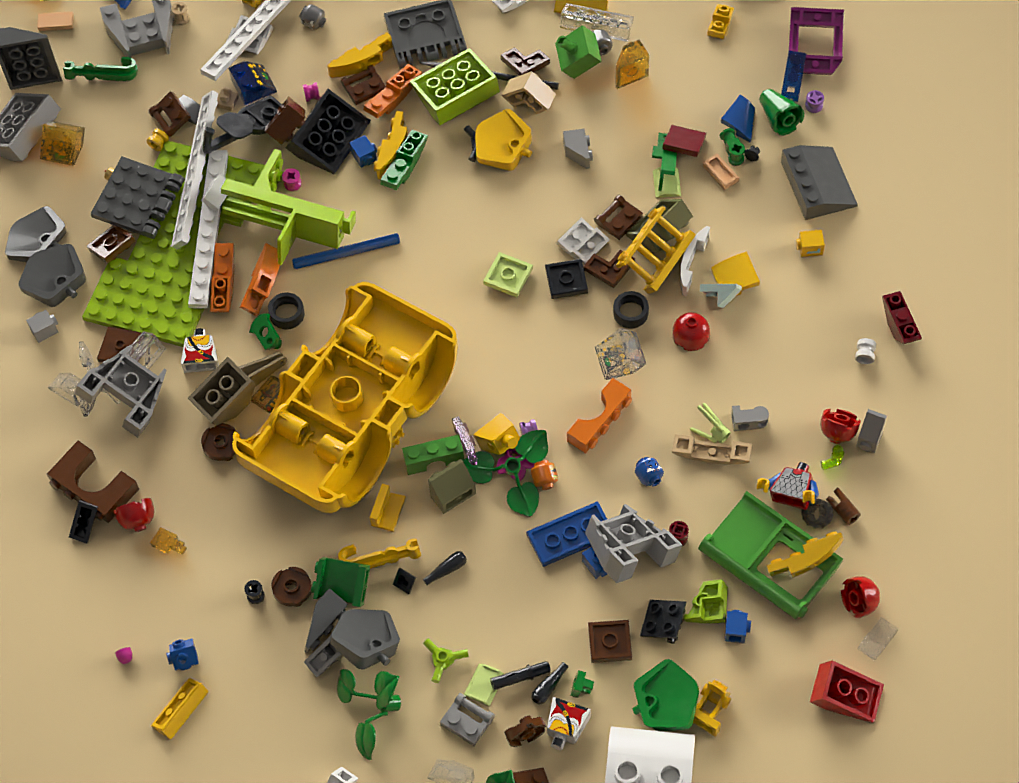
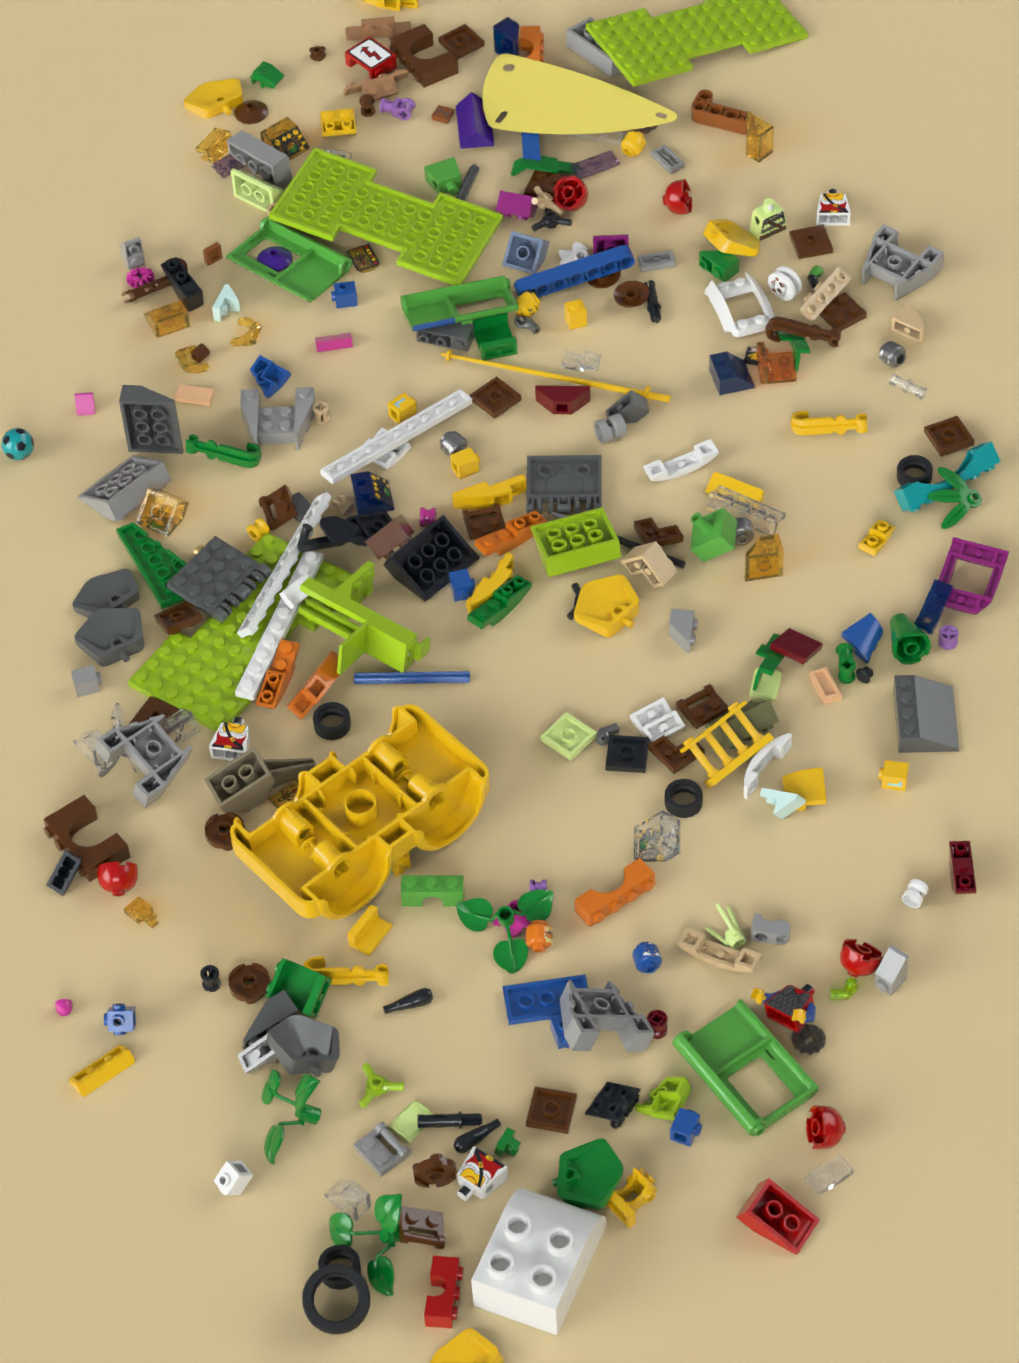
camera: 15 degrees right, 10 degrees down
(71, 194) = (153, 562): none -> green wing
(272, 339) = (308, 744): green piece -> none
(290, 184) = (379, 597): dark pink wheel -> none
(328, 32) = (465, 463): none -> yellow brick
(404, 581) = (363, 1003): black slope -> none
(451, 486) = (440, 923): olive slope -> none
(467, 441) = (470, 883): hinge -> none
(497, 435) = (505, 886): yellow torso -> none
(538, 264) = (603, 733): none -> flat silver arm
(691, 331) = (739, 833): red cylinder -> none
(815, 553) = (790, 1074): yellow slope -> none
(845, 508) = (838, 1040): reddish brown hinge -> none

